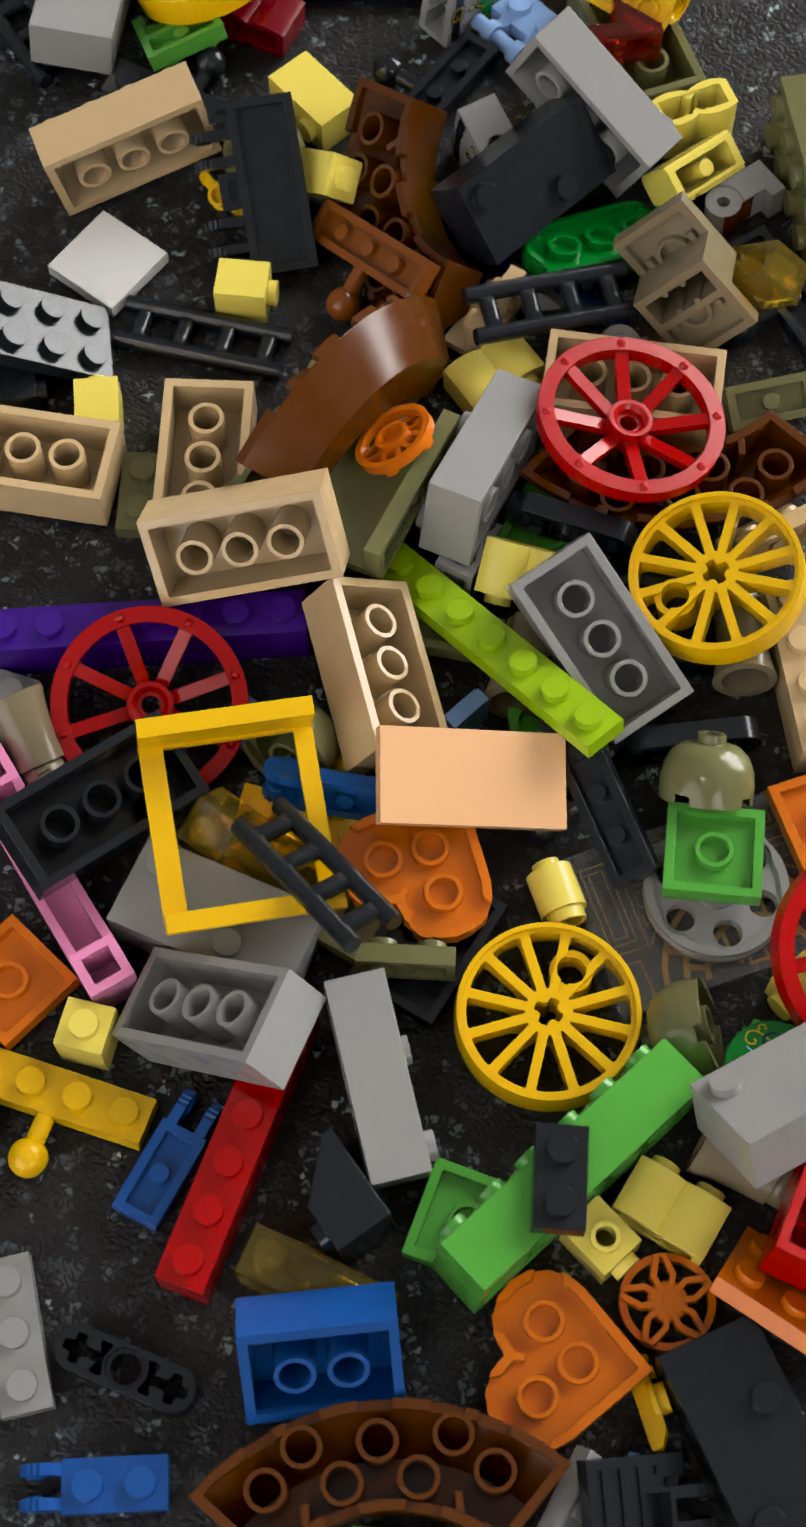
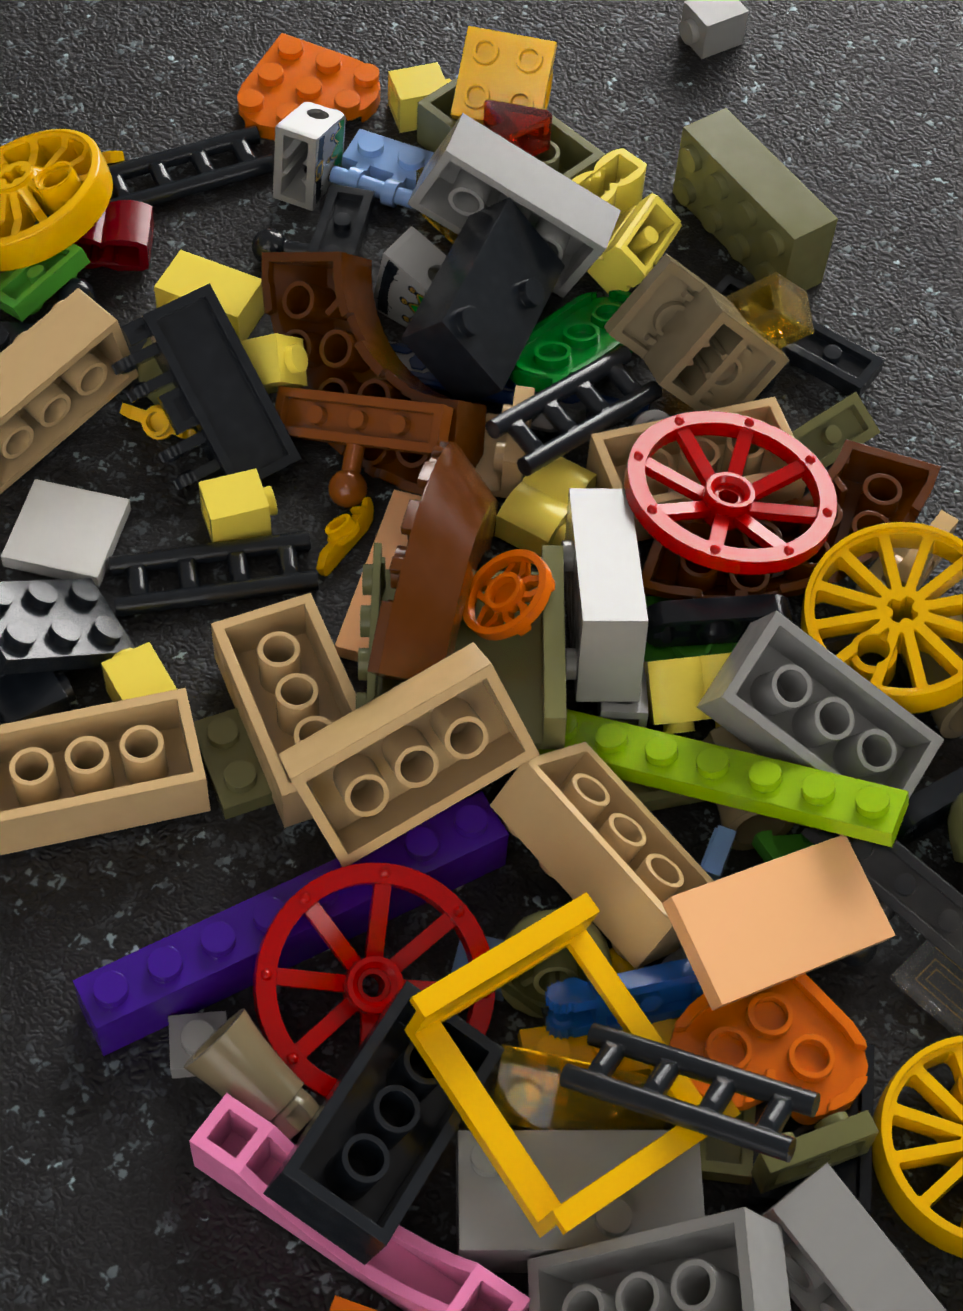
camera: 30 degrees left, 10 degrees down
(315, 337) = (343, 534): none -> yellow piece
(557, 892) = (914, 1010): light yellow brick -> none
(742, 197) = (700, 245): light grey leg -> none

